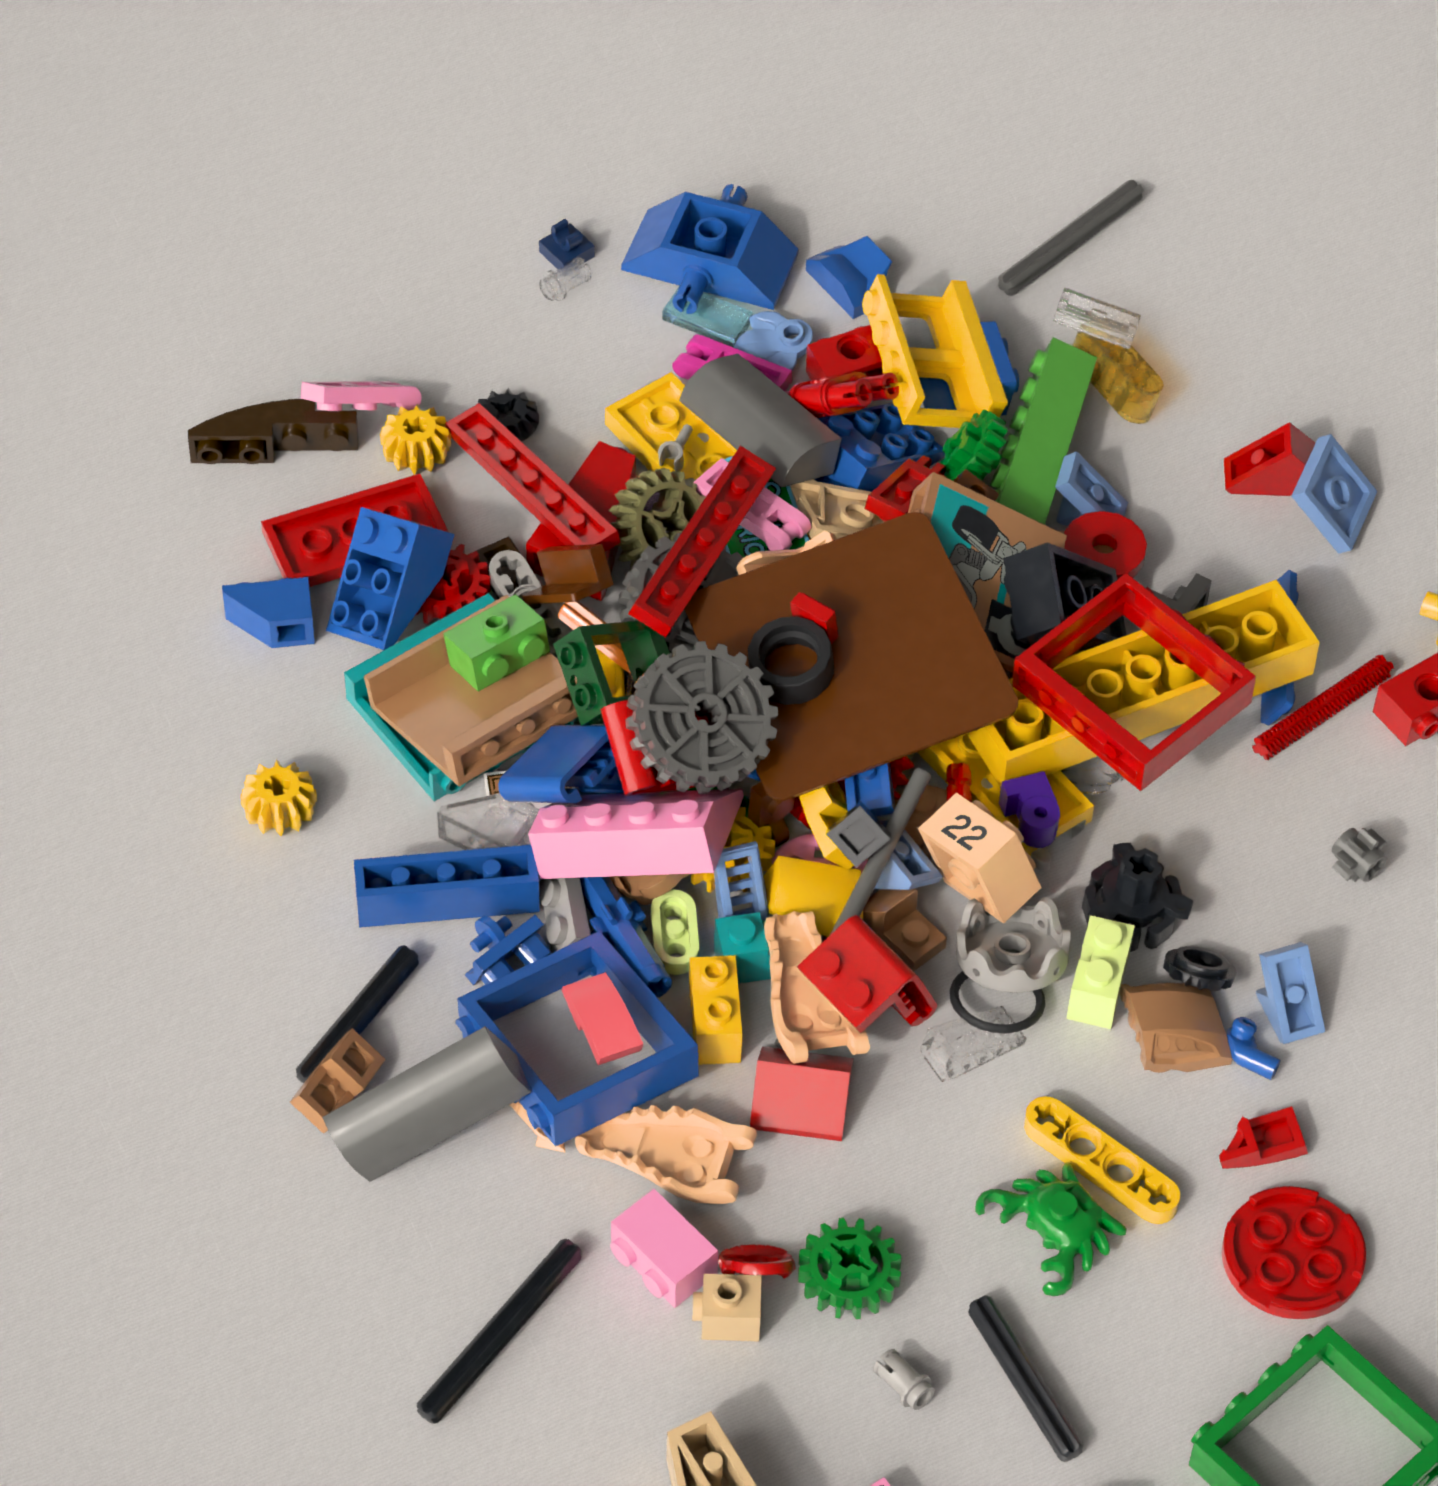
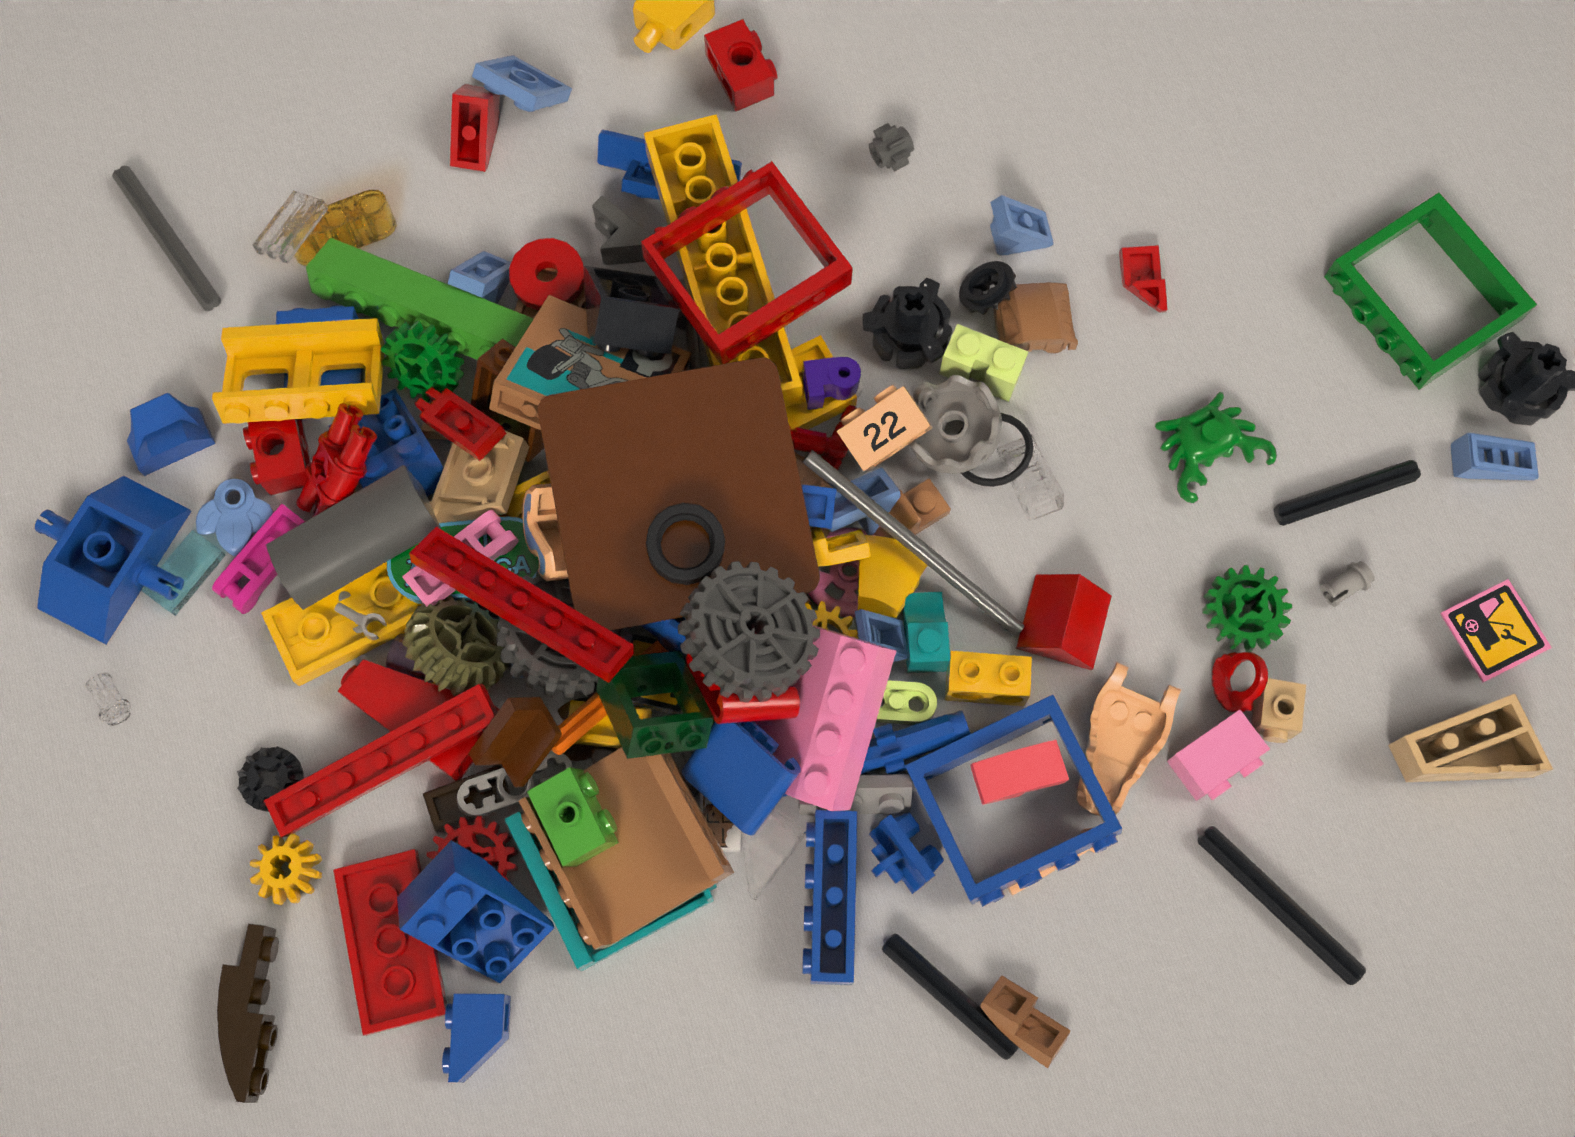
camera: 80 degrees left, 20 degrees up
(278, 797) = (711, 1058): yellow gear -> none
(361, 394) = (228, 918): bright pink plate -> none
(427, 1104) = (1089, 939): brick -> none
(565, 245) = (64, 693): dark blue tile -> none
(799, 1011) = (993, 592): light nougat animal -> none
(811, 609) = (644, 515): red tile -> none
(858, 834) = (860, 522): tile -> none
(866, 977) = (993, 544): piece -> none
(1107, 1153) = (1152, 398): yellow beam -> none
(1245, 1049) = (1062, 272): blue arm -> none
(1293, 1253) = (1244, 277): red tile -> none
(1322, 707) = (706, 106): red axle -> none

